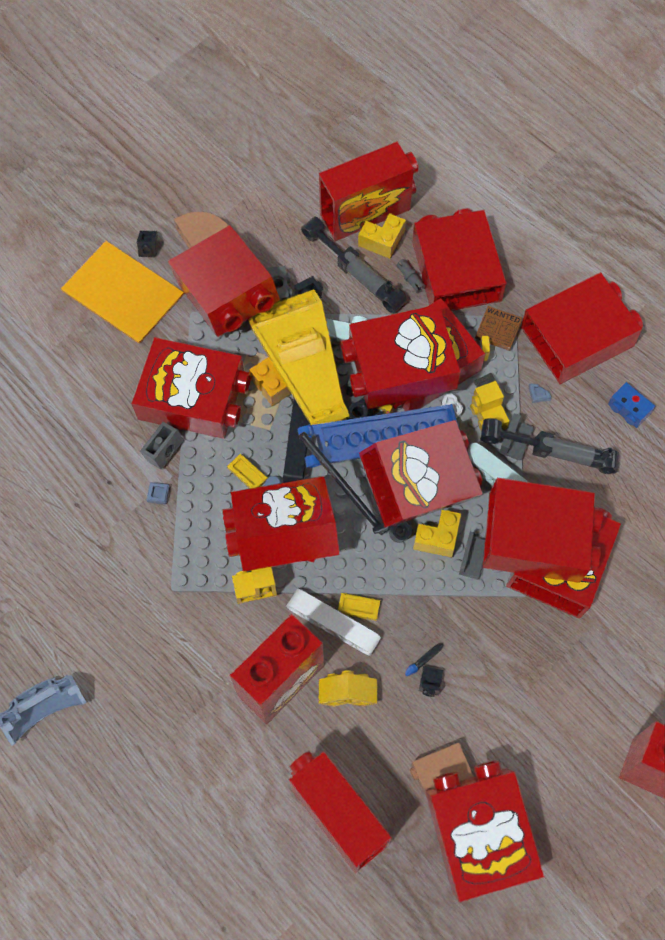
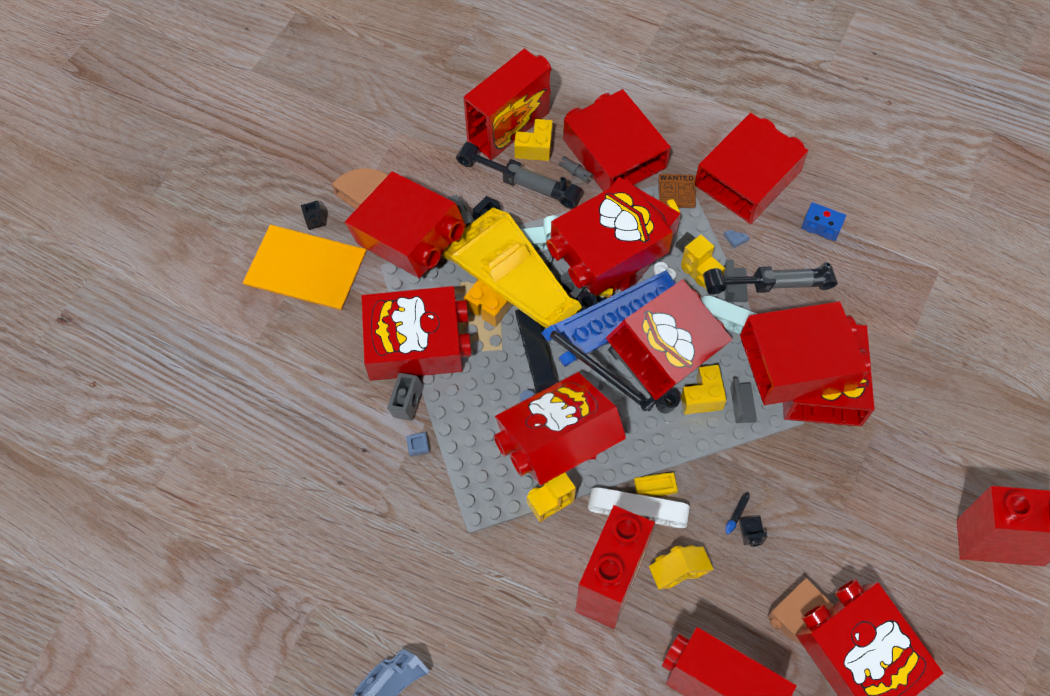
camera: 20 degrees left, 5 degrees down
(247, 472) = (498, 395): yellow tile -> none

